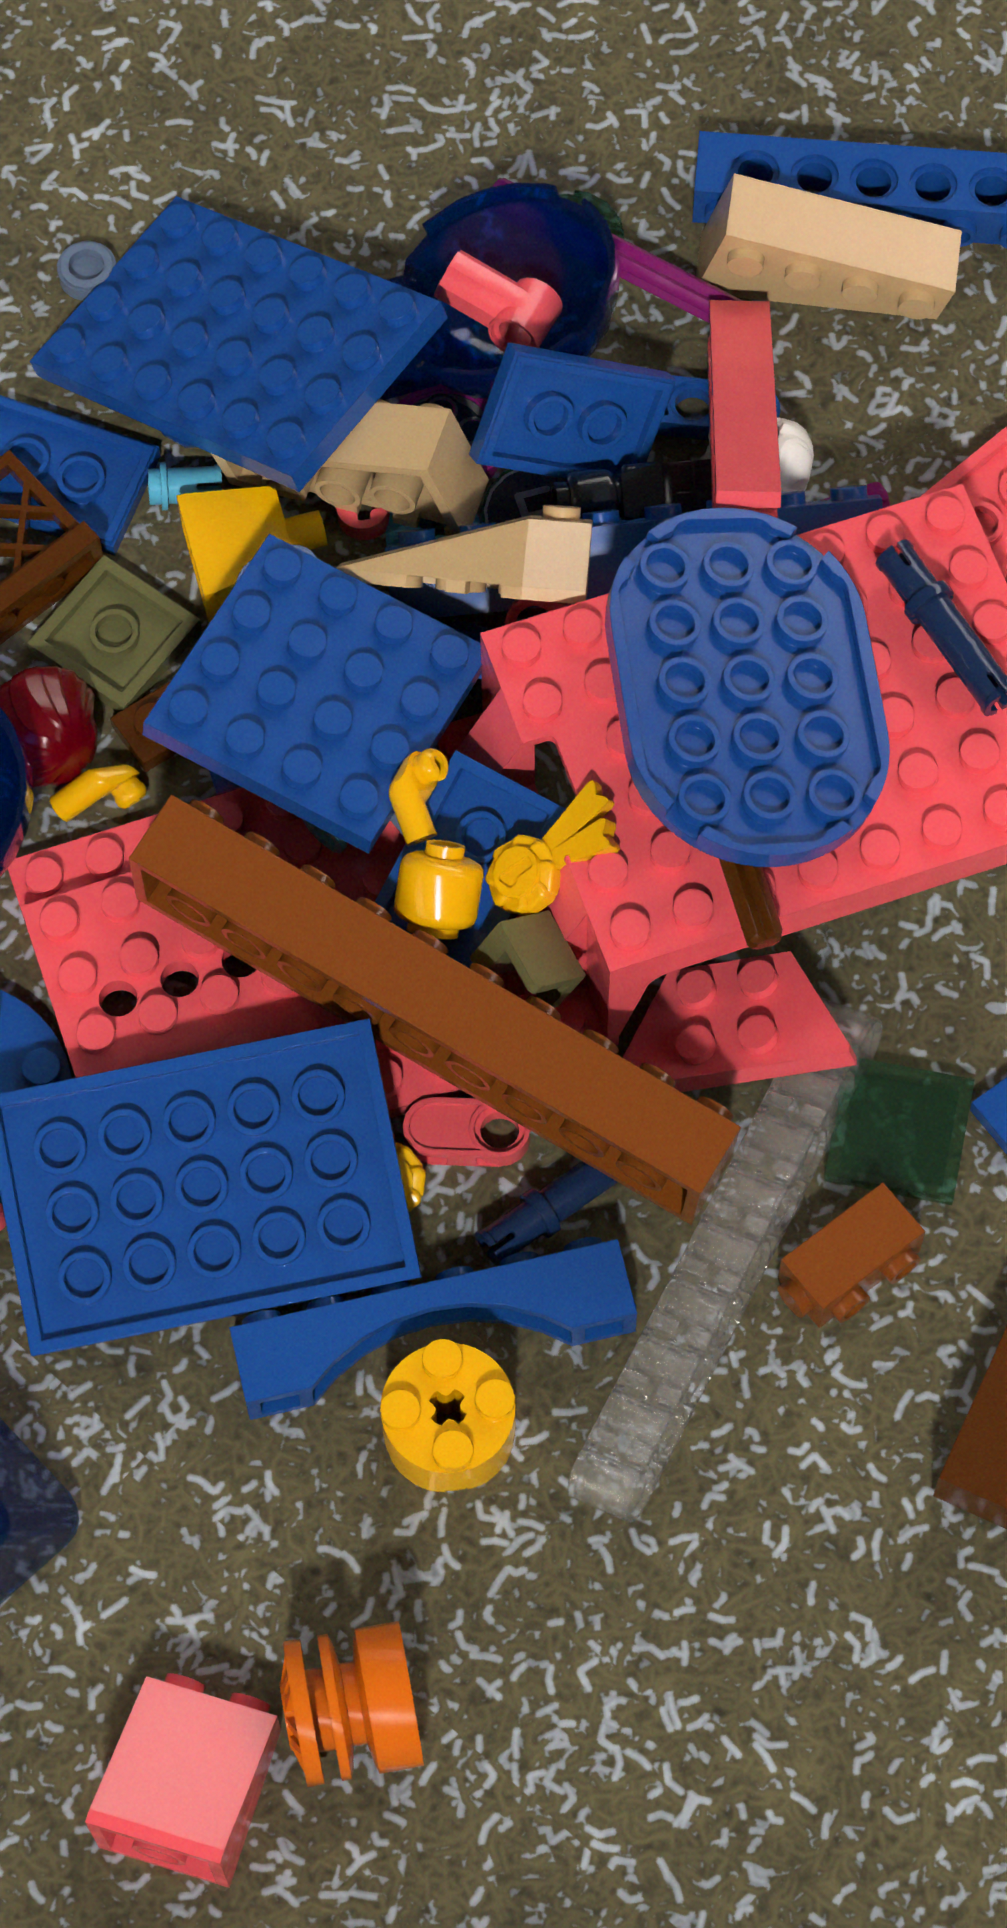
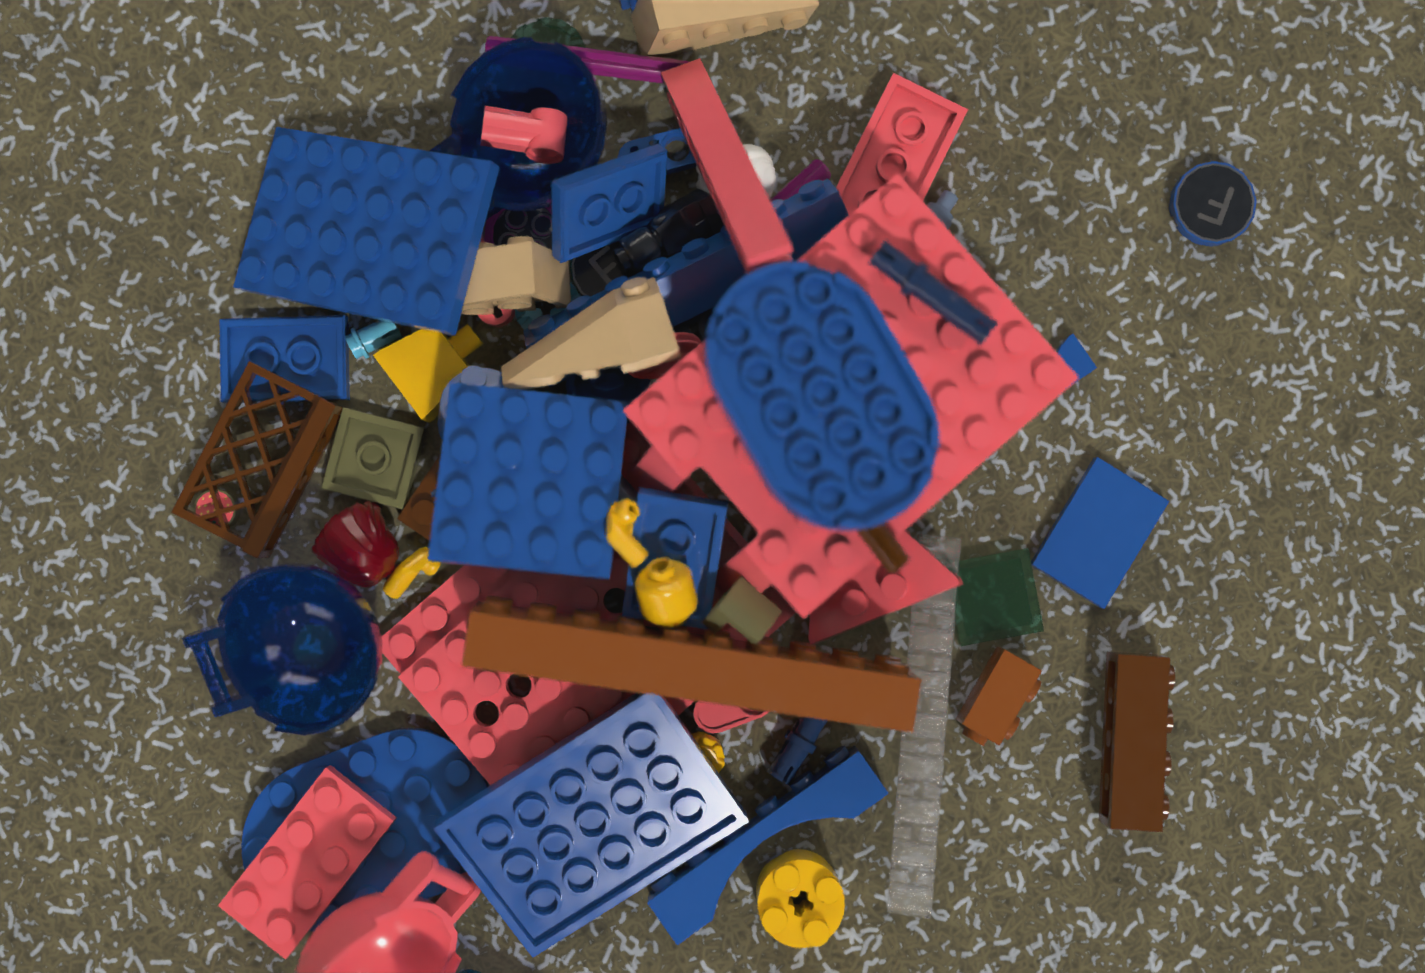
camera: 25 degrees left, 20 degrees up
(84, 267) = (239, 202): sand blue tile -> none
(527, 869) = (719, 558): yellow piece -> none

